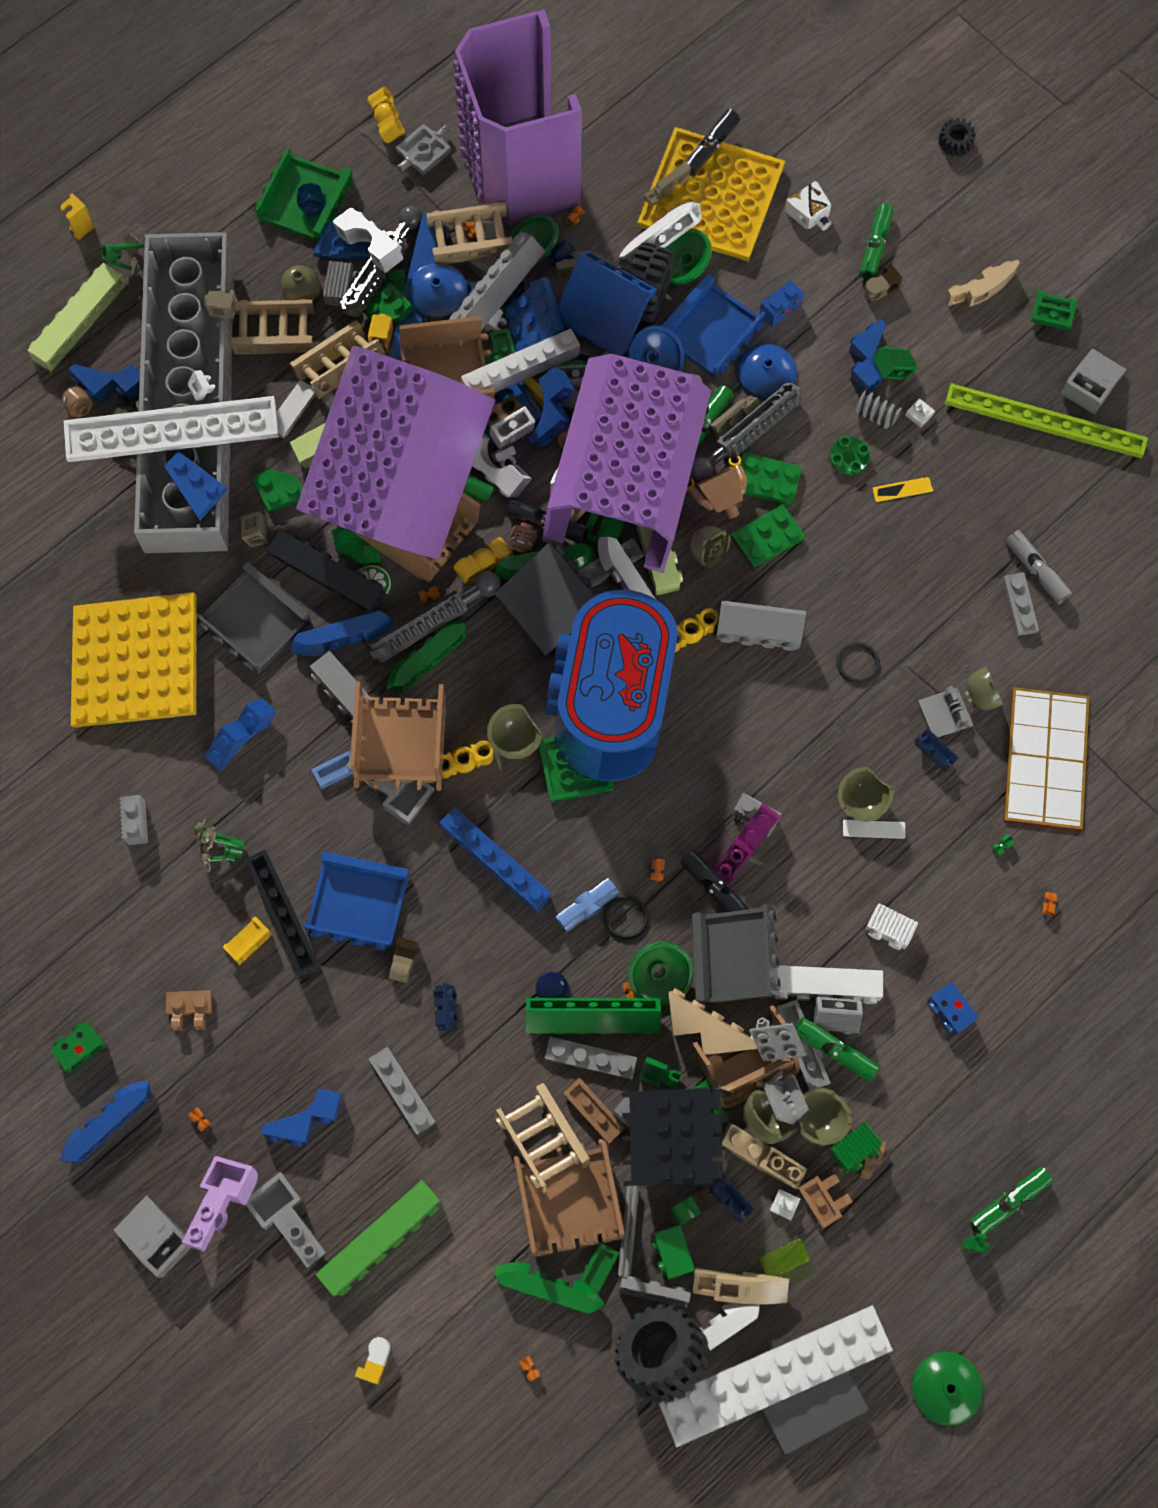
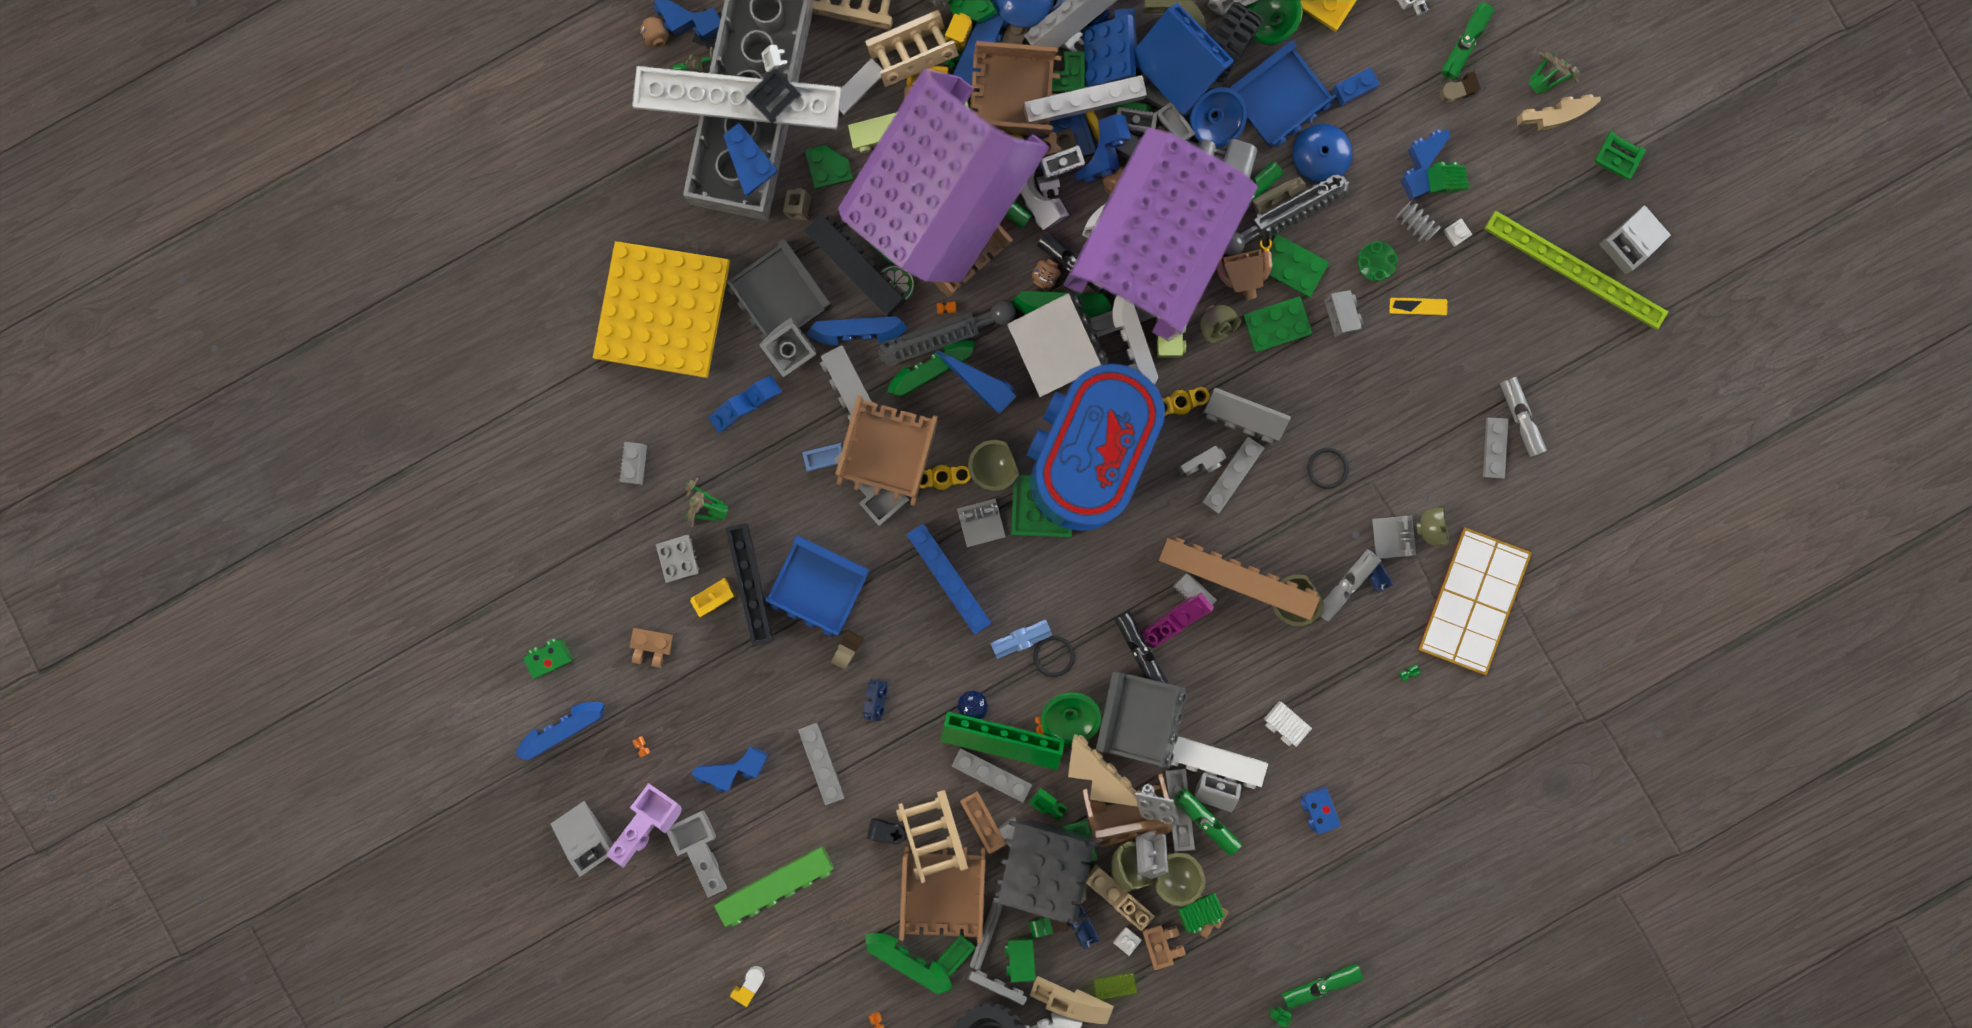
camera: 15 degrees right, 15 degrees up
(200, 908) = (677, 558): none -> light grey hinge
(202, 411) = (768, 91): none -> black plate
(273, 665) = (787, 347): none -> light grey slope
(482, 560) = (1004, 287): yellow piece -> none
(484, 654) = (992, 391): none -> blue slope
(485, 1147) = (882, 831): none -> black piece
(515, 797) = (981, 522): none -> light grey hinge
(657, 865) = (1093, 617): orange piece -> none
(731, 679) = (1207, 461): none -> light grey plate
(763, 690) = (1233, 475): none -> light grey plate
(799, 785) = (1240, 579): none -> medium nougat brick
(829, 509) = (1343, 313): none -> light grey slope
(874, 829) = (1306, 632): white sticker -> none
(909, 775) = (1342, 592): none -> light grey piece
(956, 263) = (1540, 82): none -> plant
(1049, 907) = (1434, 739): orange piece -> none

